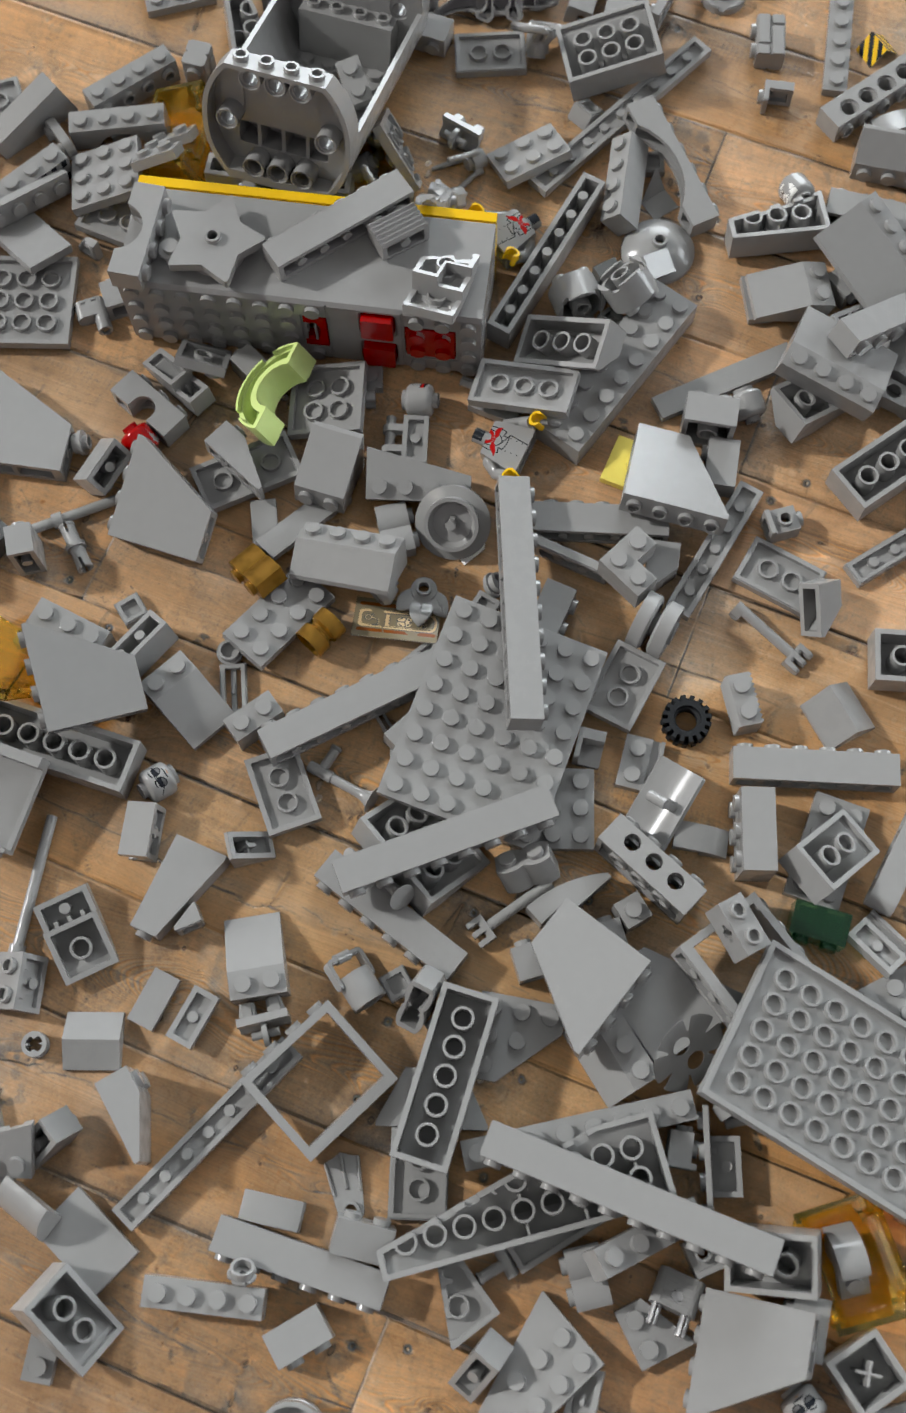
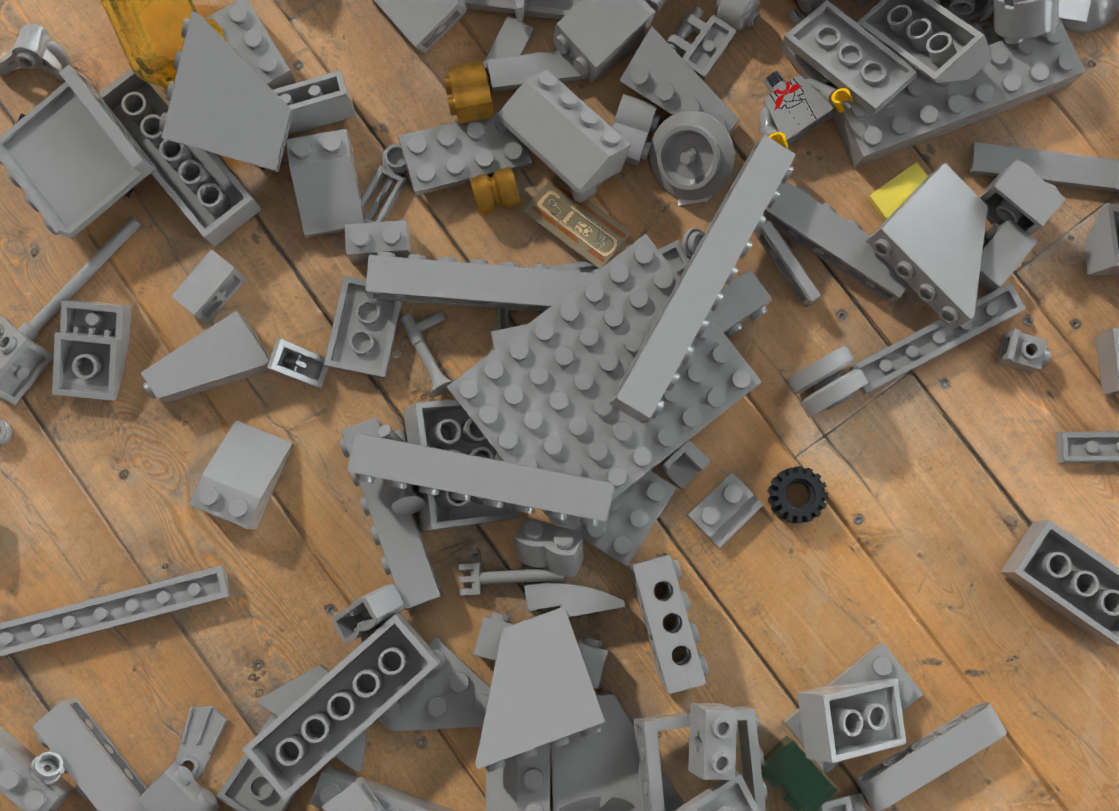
camera: 25 degrees right, 10 degrees up
(93, 1041) = (49, 460): light grey slope -> none
(129, 1106) = (34, 553): light grey slope -> none
(131, 609) = (329, 59): light grey tile -> none
(154, 999) = (127, 456): light grey tile -> none
(158, 782) = (251, 248): light grey head -> none
(190, 920) = (203, 401): light grey slope -> none
(193, 1017) = (151, 495): light grey plate -> none
(264, 1024) = (201, 532): light grey hips -> none
(272, 1210) = (116, 723): light grey slope -> none
(274, 1050) = (239, 679): light grey window -> none
(358, 986) = (321, 564): light grey piece -> none
(395, 983) = (359, 580): light grey tile -> none
(423, 604) = (613, 222): light grey plate -> none
(624, 566) = (832, 305): light grey brick -> none
(624, 686) = (759, 423): light grey plate -> none
(632, 912) = (623, 652): light grey brick -> none
(664, 562) = (872, 323): light grey slope -> none
(665, 800) = (724, 563): light grey shield -> none
(701, 839) = (736, 620): light grey slope -> none
(741, 703) = (864, 511): light grey brick -> none
(751, 404) = (1074, 209): light grey head -> none
(753, 834) = (791, 650): light grey brick -> none
(775, 574) = (985, 404): light grey tile -> none
(792, 655) = (947, 491): light grey hinge -> none
(814, 768) = (896, 621): light grey brick -> none
(818, 605) = (1006, 459): light grey slope -> none
(837, 715) = (951, 580): light grey slope -> none

